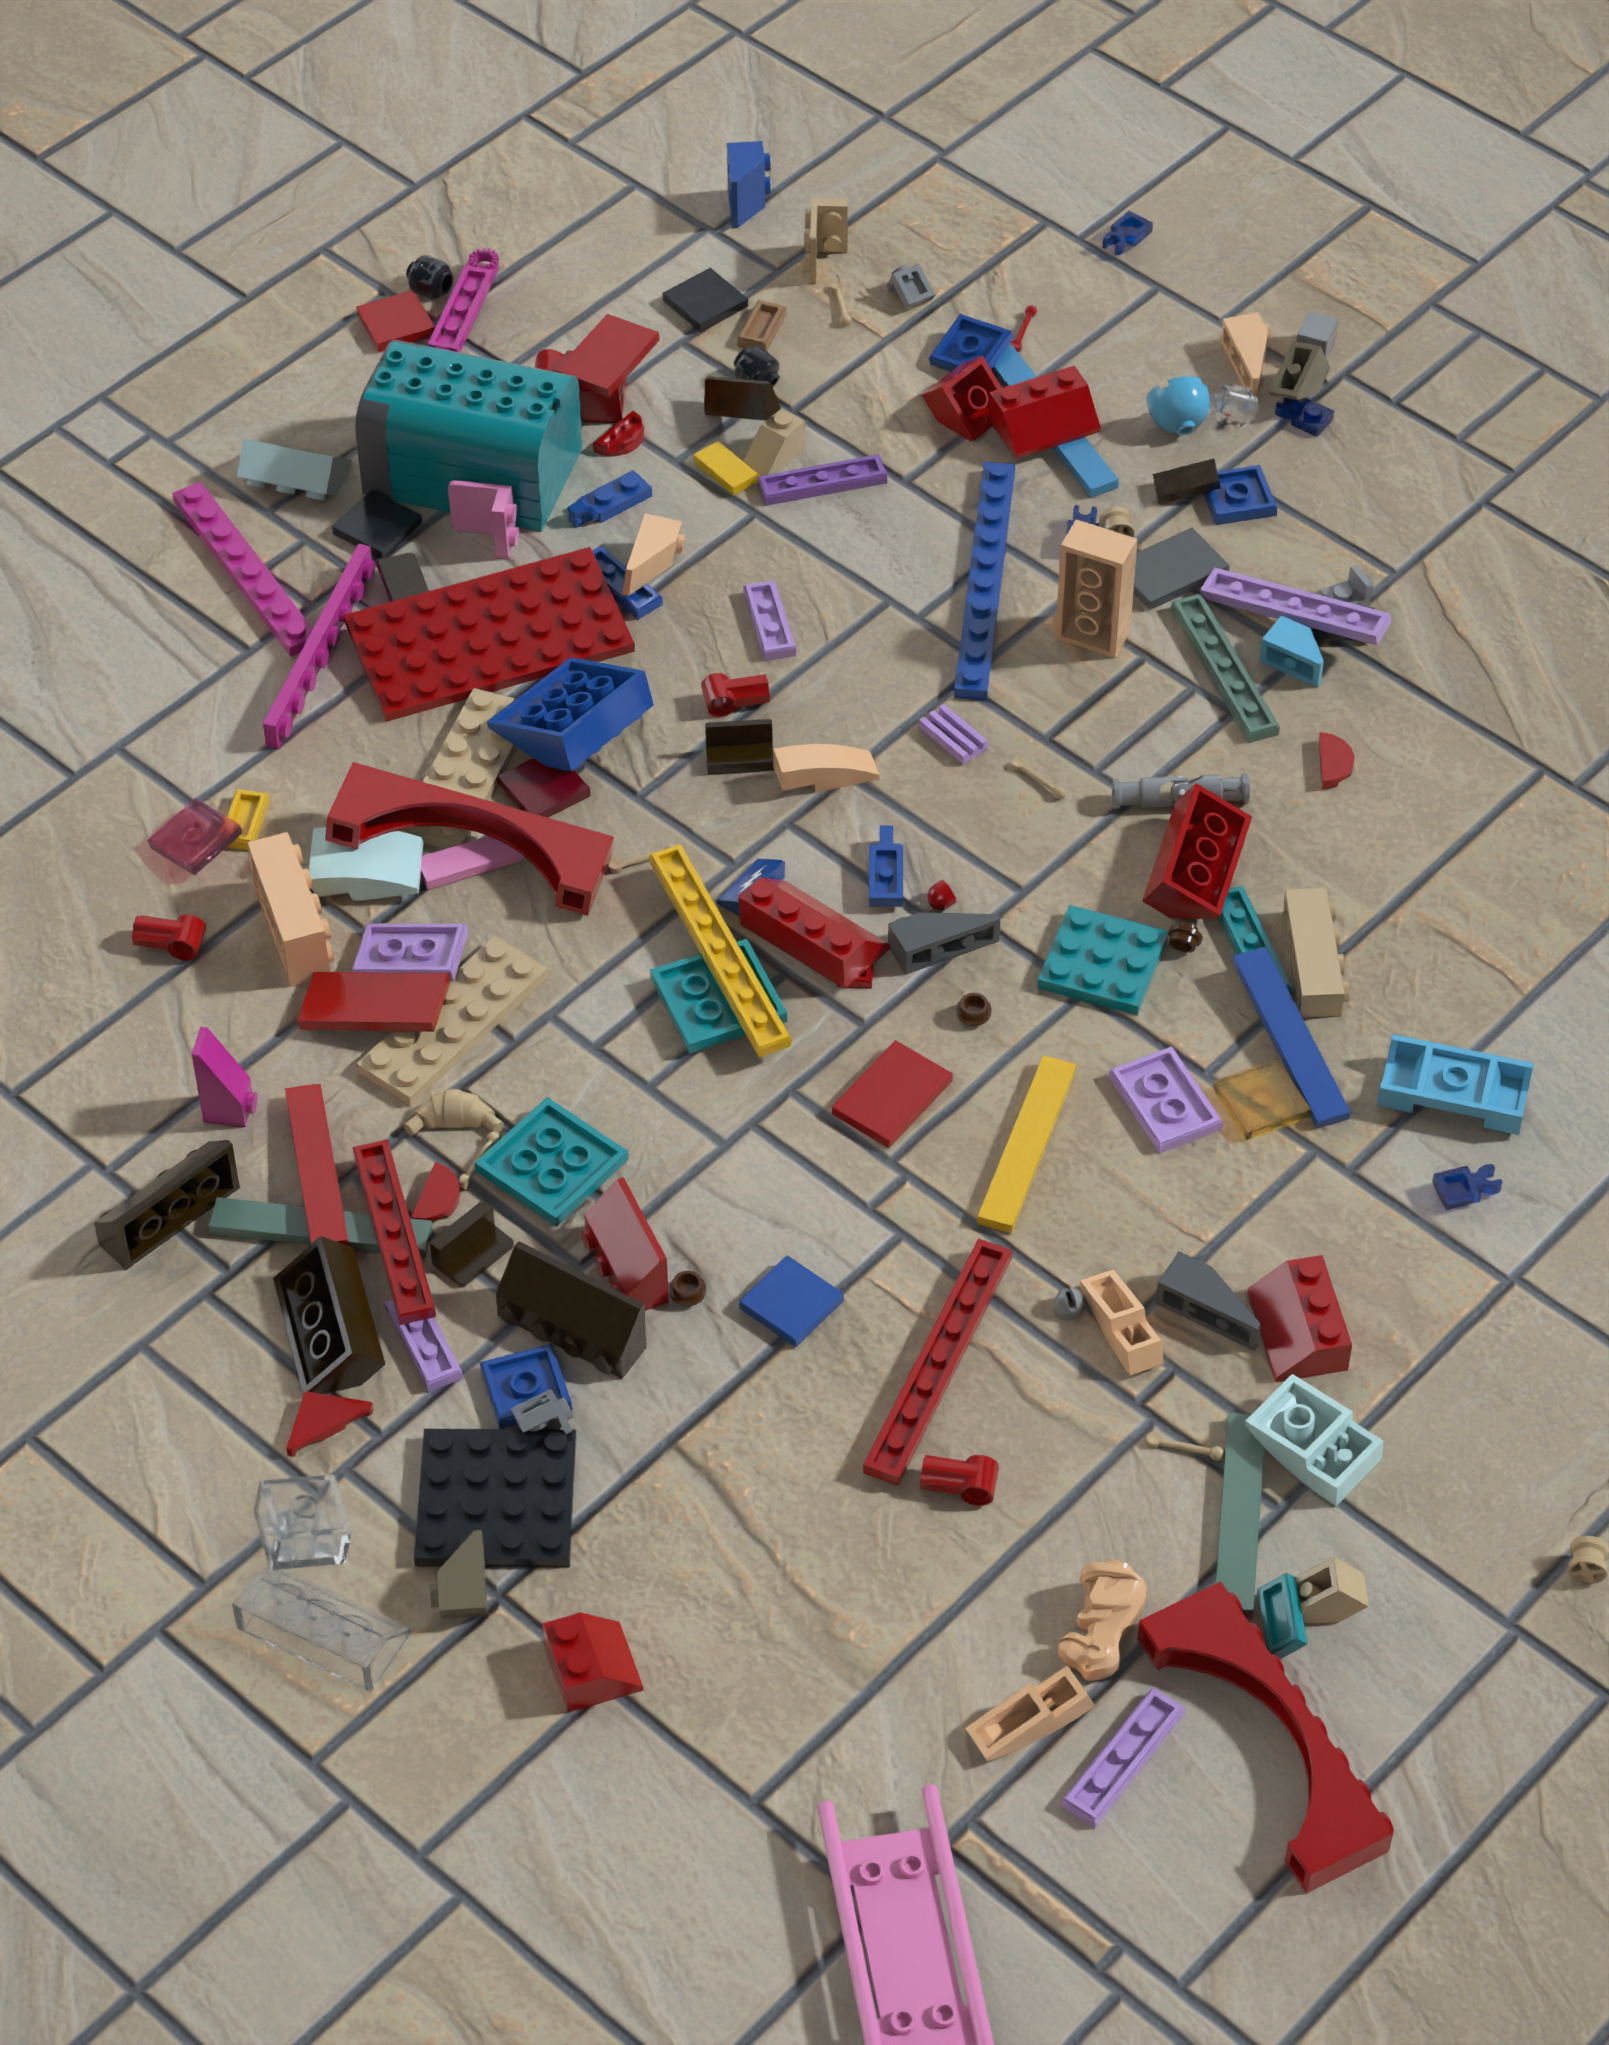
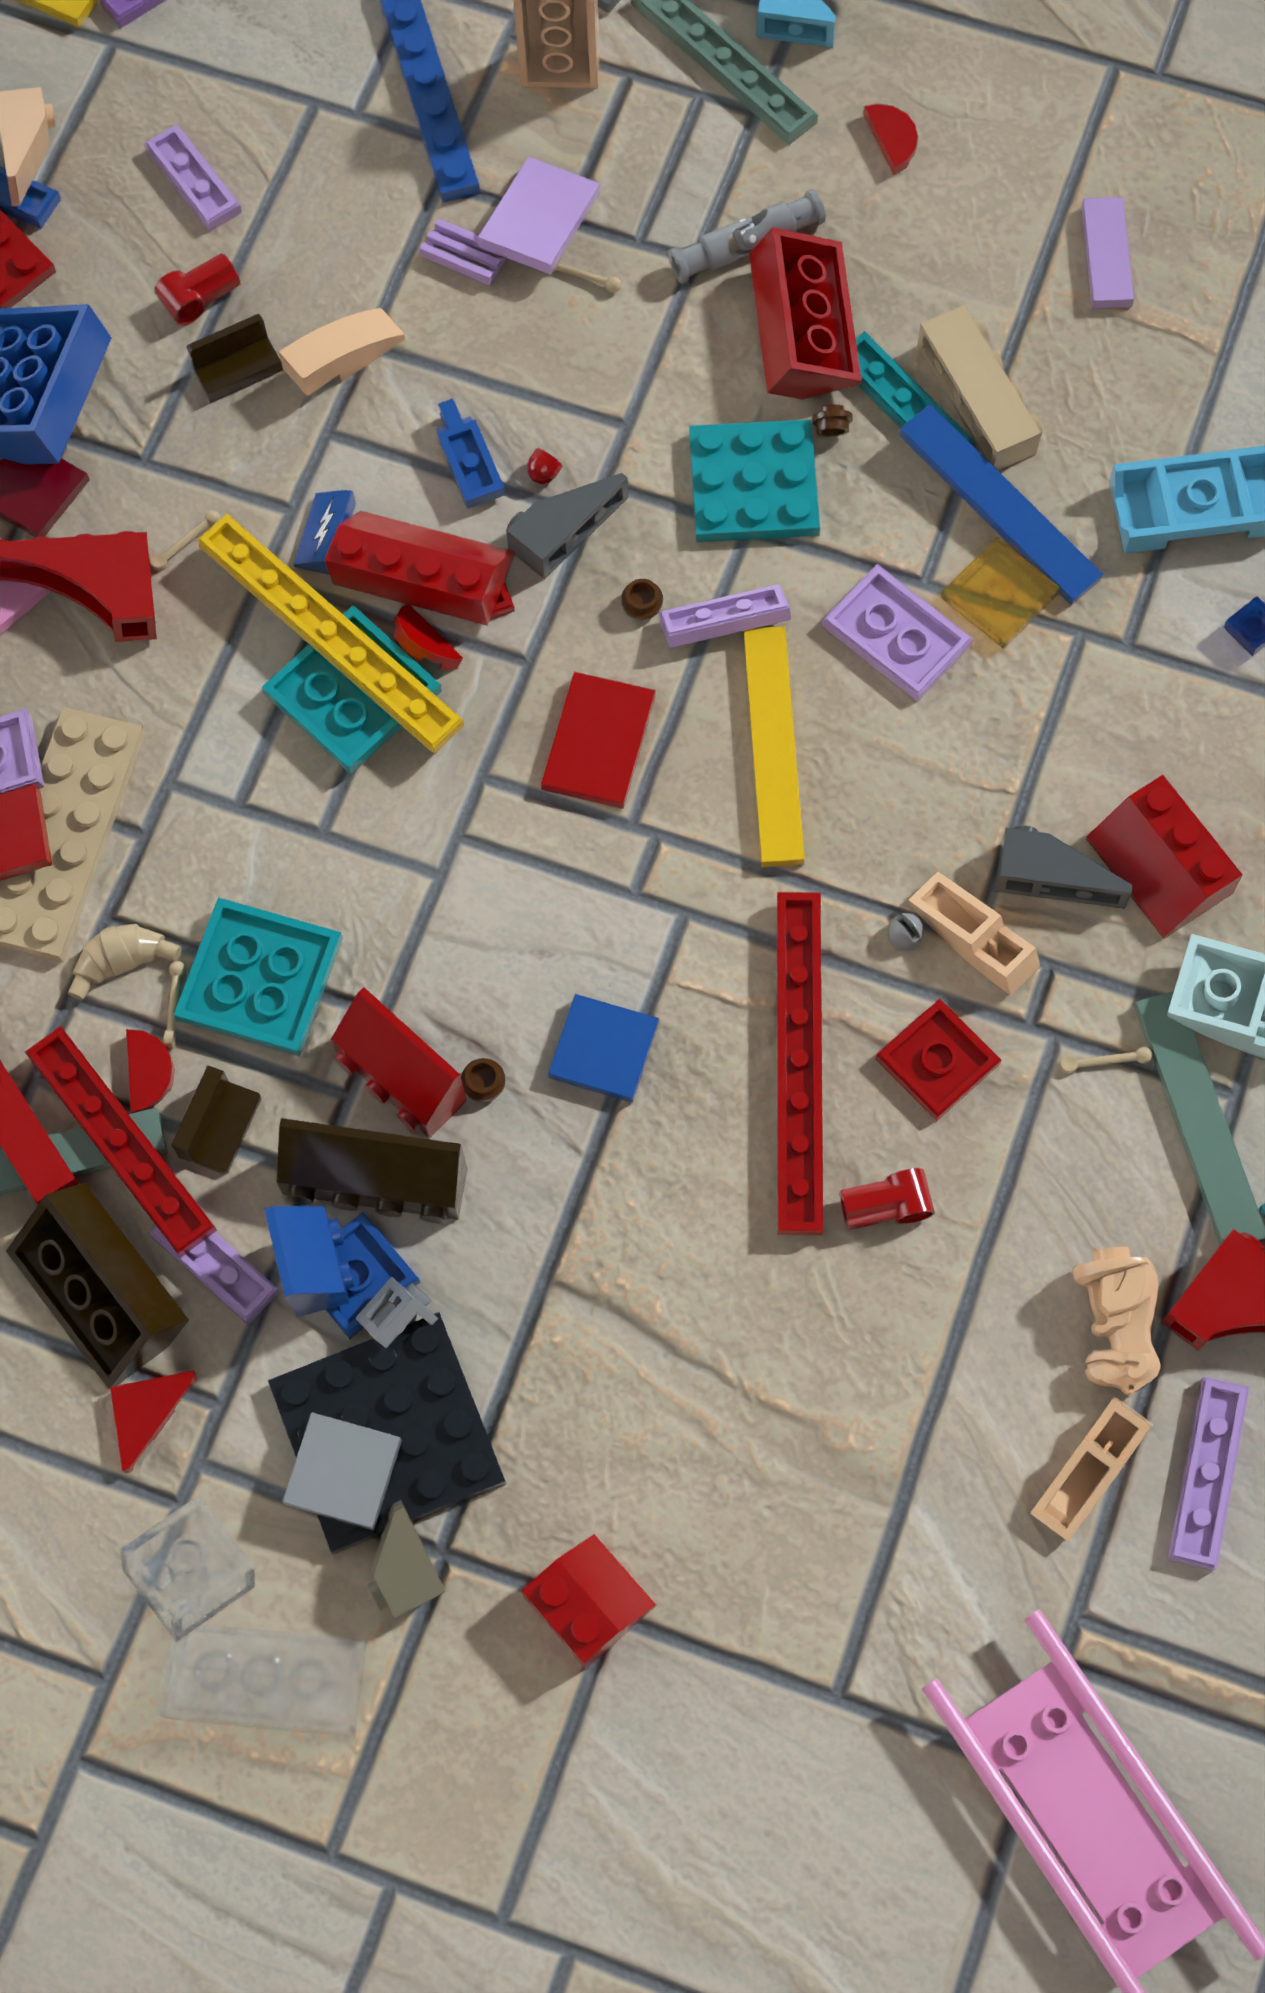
camera: 20 degrees left, 20 degrees up
(449, 1501) = (342, 1471): none -> light grey tile
(493, 1348) = (308, 1258): none -> blue slope
(786, 977) = (422, 640): none -> red tile
(1023, 726) = (539, 215): none -> lavender tile
(1032, 1041) = (724, 615): none -> lavender tile
(1050, 1399) = (938, 1059): none -> red tile
(1468, 894) = (1107, 252): none -> lavender tile

